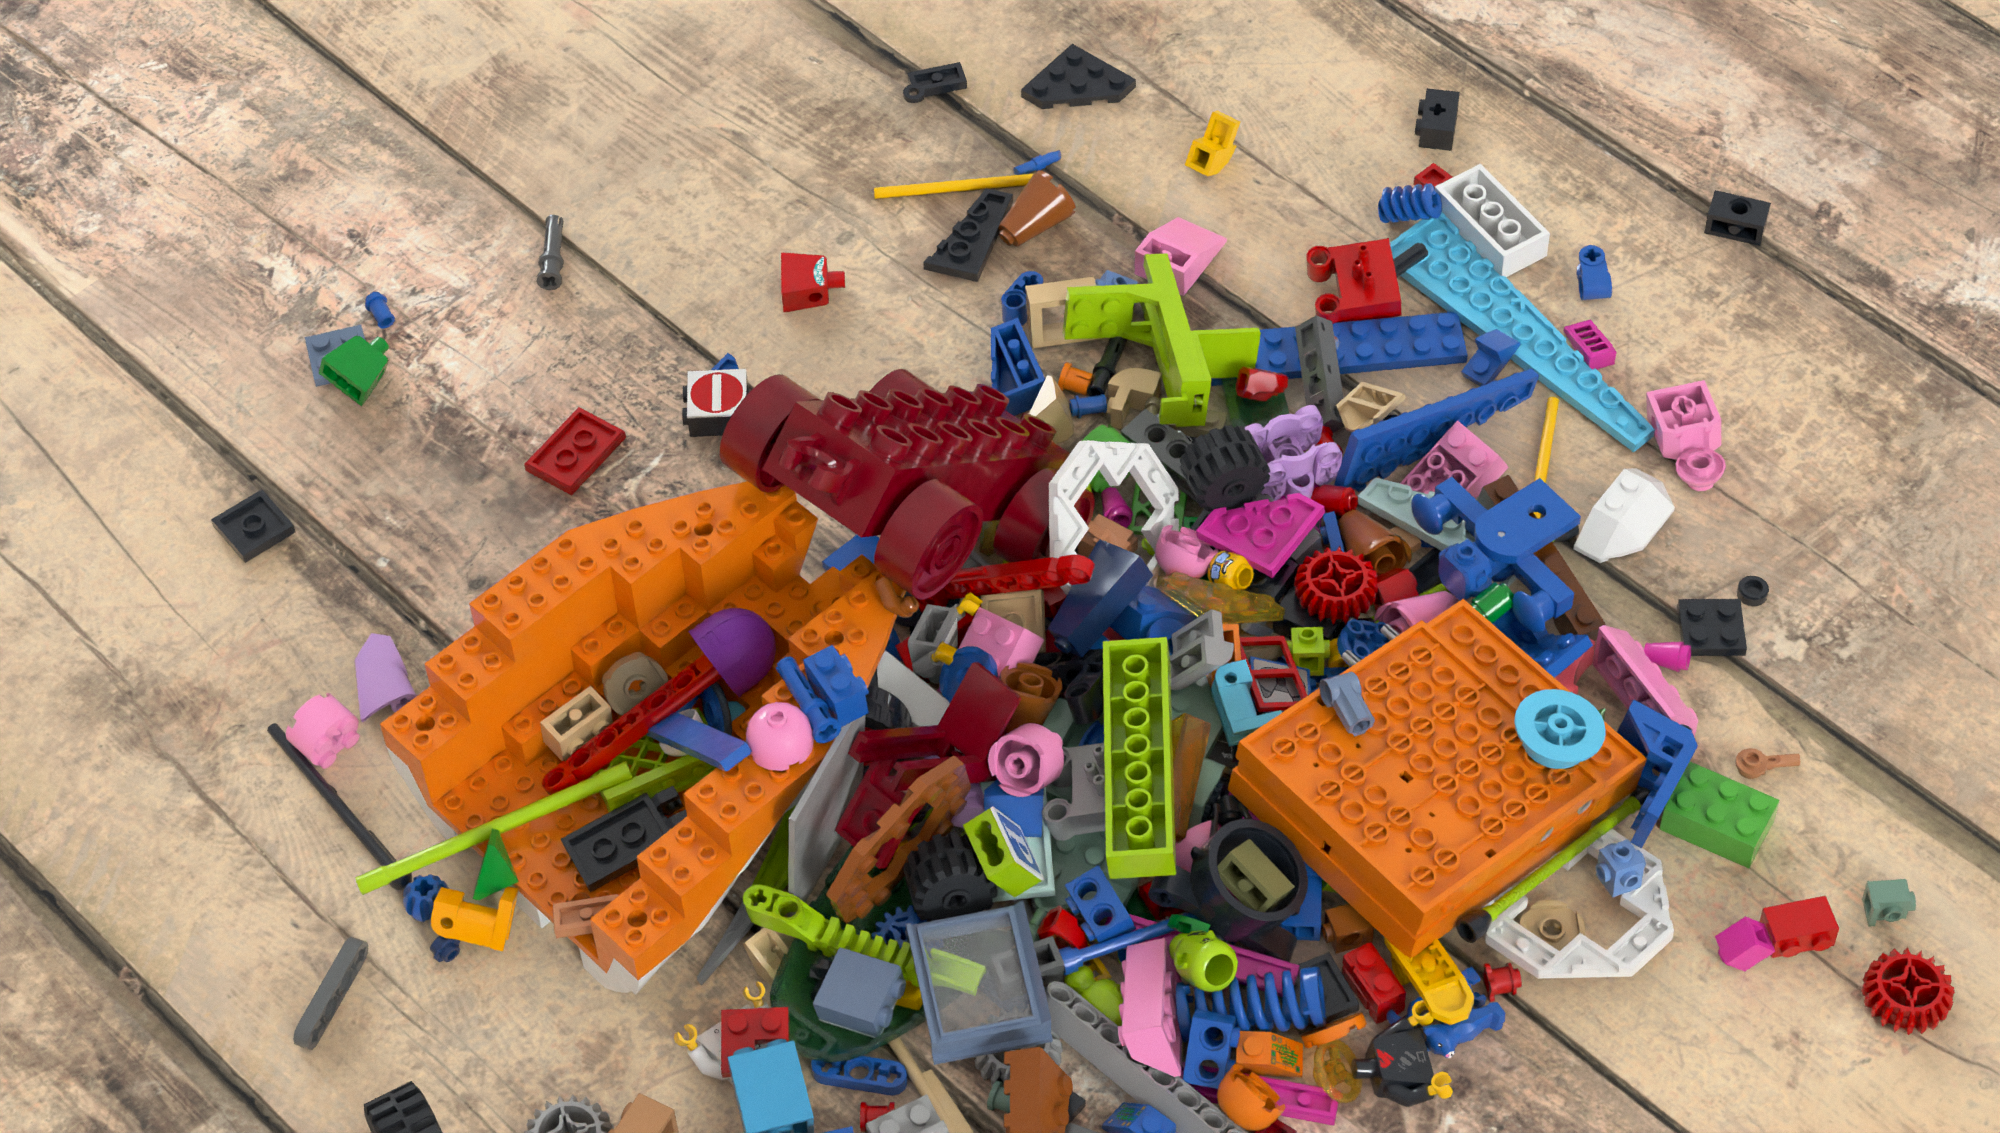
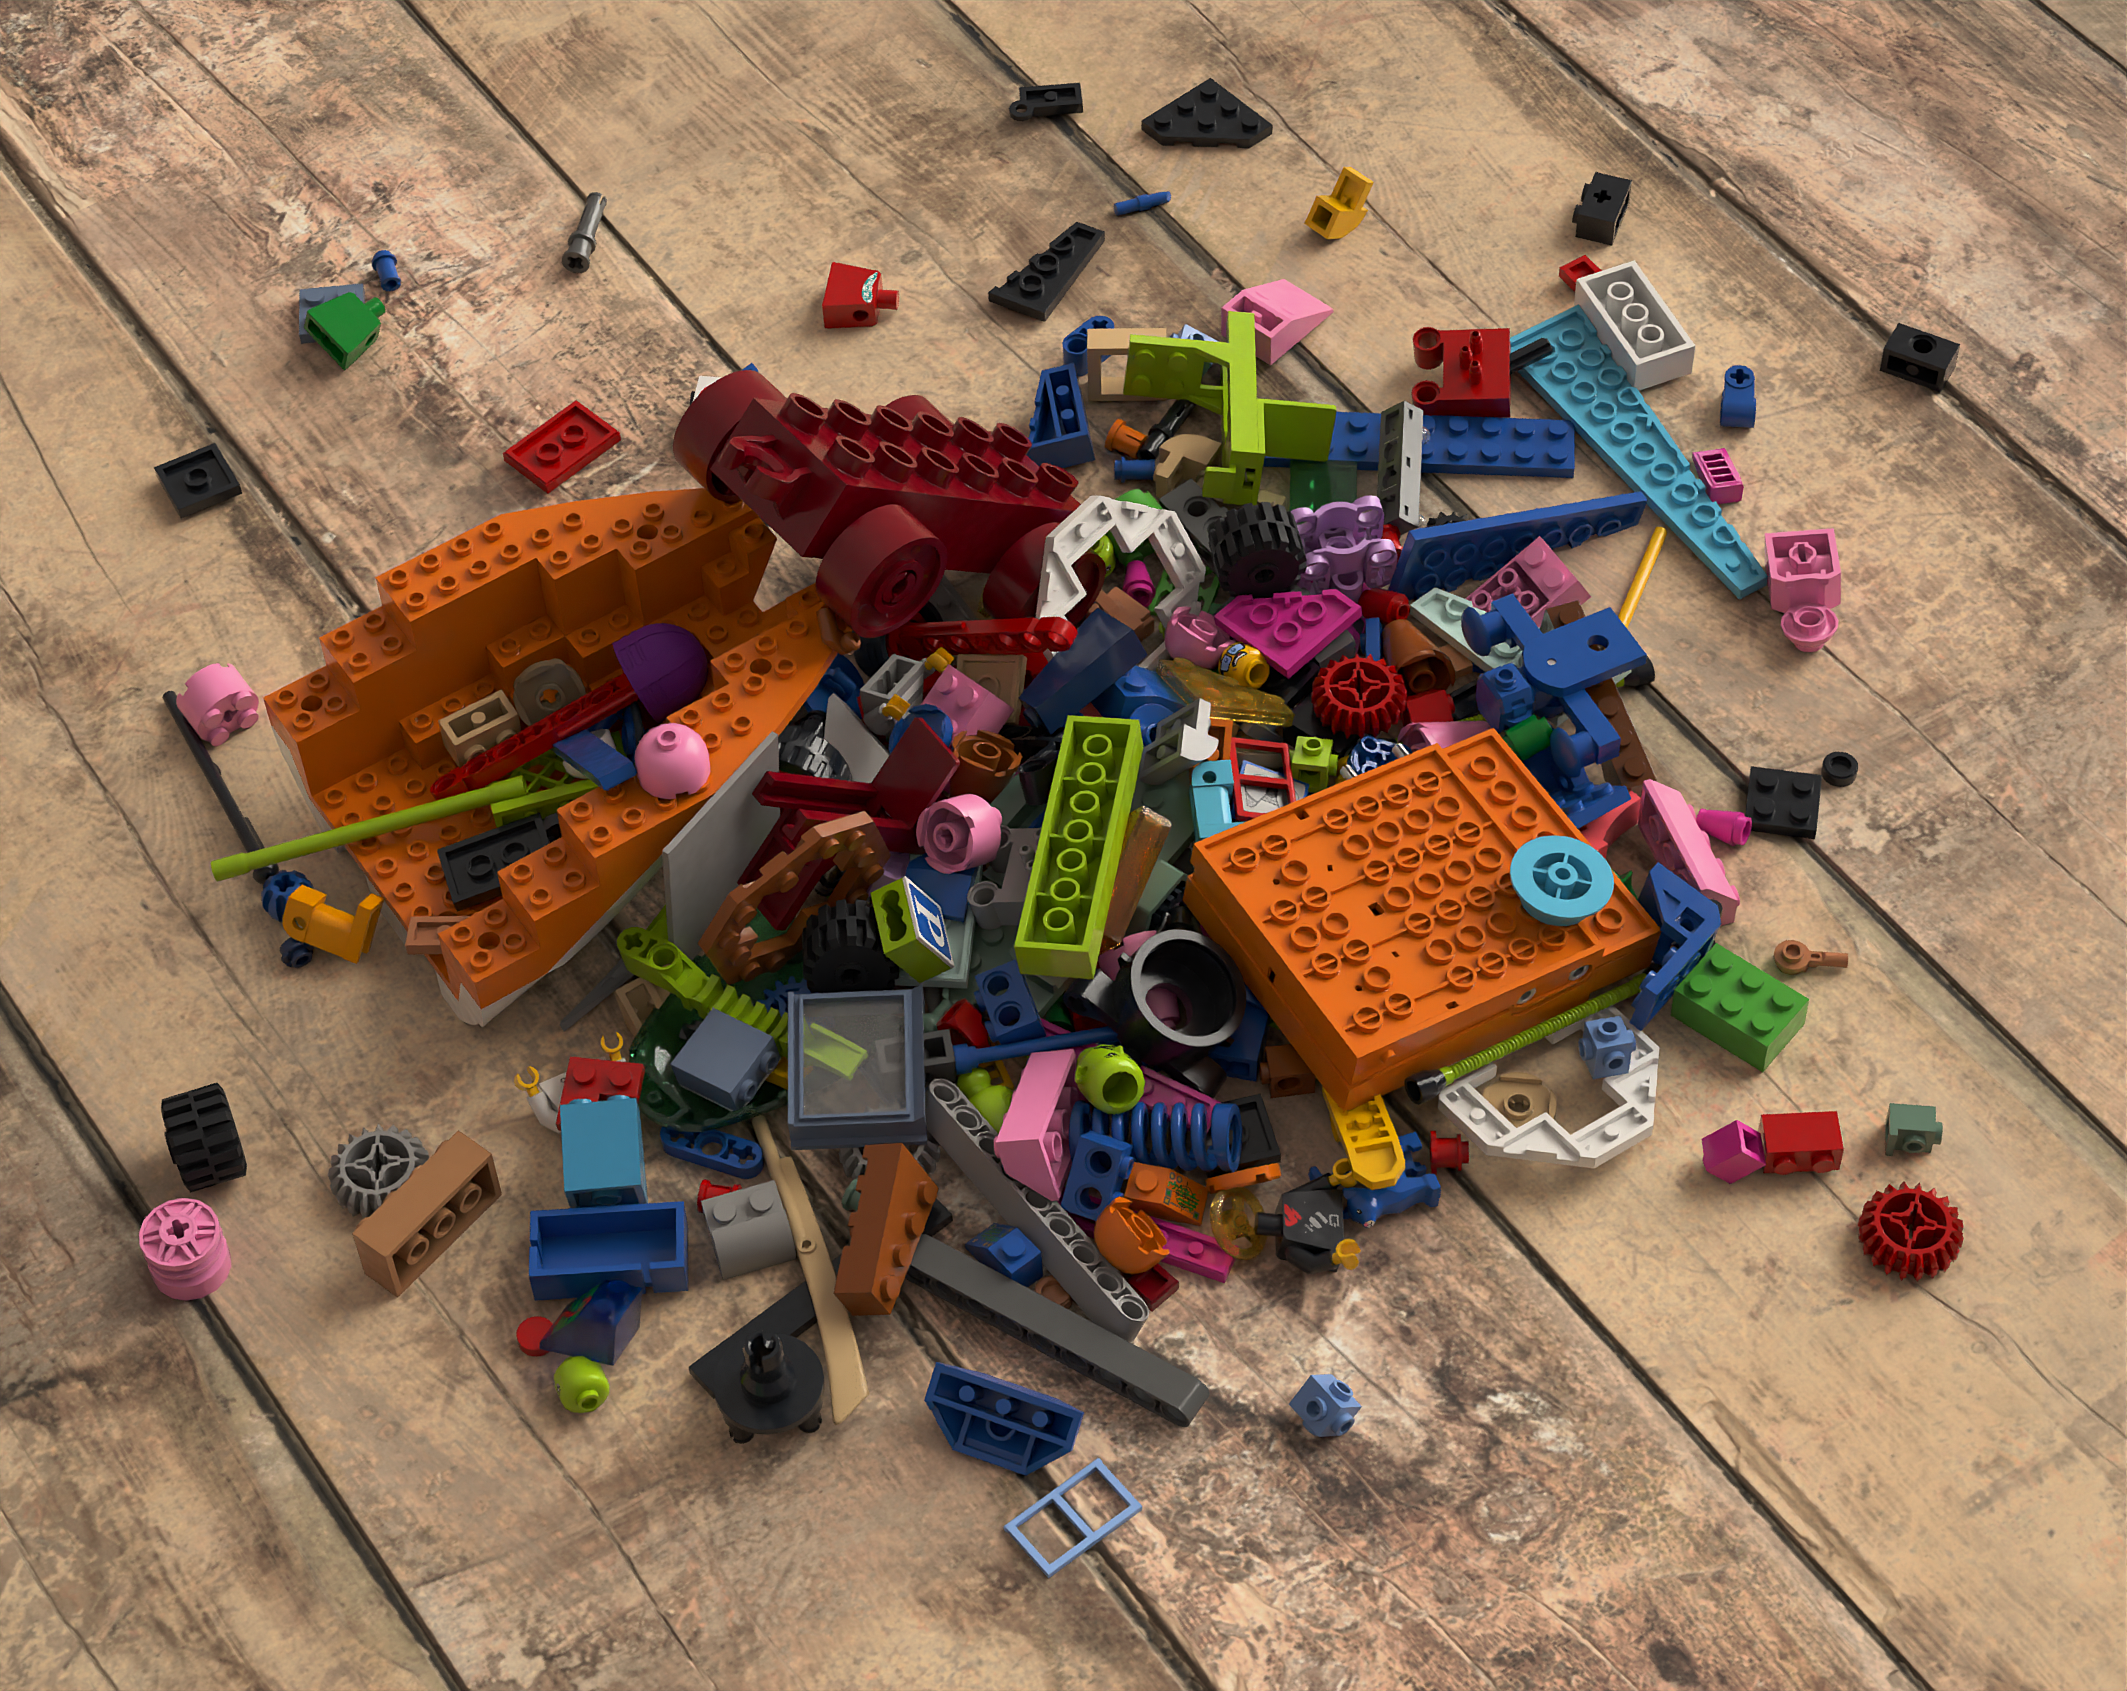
camera: 10 degrees right, 0 degrees up
(330, 993) = (163, 981): dark grey beam -> none
(381, 677) = (292, 651): lavender panel -> none
(495, 870) = (362, 871): green slope -> none
(812, 706) = (714, 734): blue pin -> none
(836, 684) = (745, 715): blue brick -> none
(952, 186) = (1049, 216): yellow piece -> none
(1036, 210) = (1124, 252): dark orange cone -> none
(1054, 409) = (1092, 468): tan slope -> none
(1186, 924) = (1097, 1036): green tile -> none
(1253, 878) = (1184, 997): olive brick -> none
(1260, 383) = (1329, 469): red rock -> none
(1344, 695) = (1324, 811): sand blue piece -> none
(1367, 405) = (1442, 505): tan slope -> none
(1373, 982) = (1302, 1133): red brick -> none
(1409, 203) = (1545, 295): blue piece -> none
(1492, 355) = (1602, 471): blue slope -> none
(1625, 517) = (1710, 667): white wedge -> none

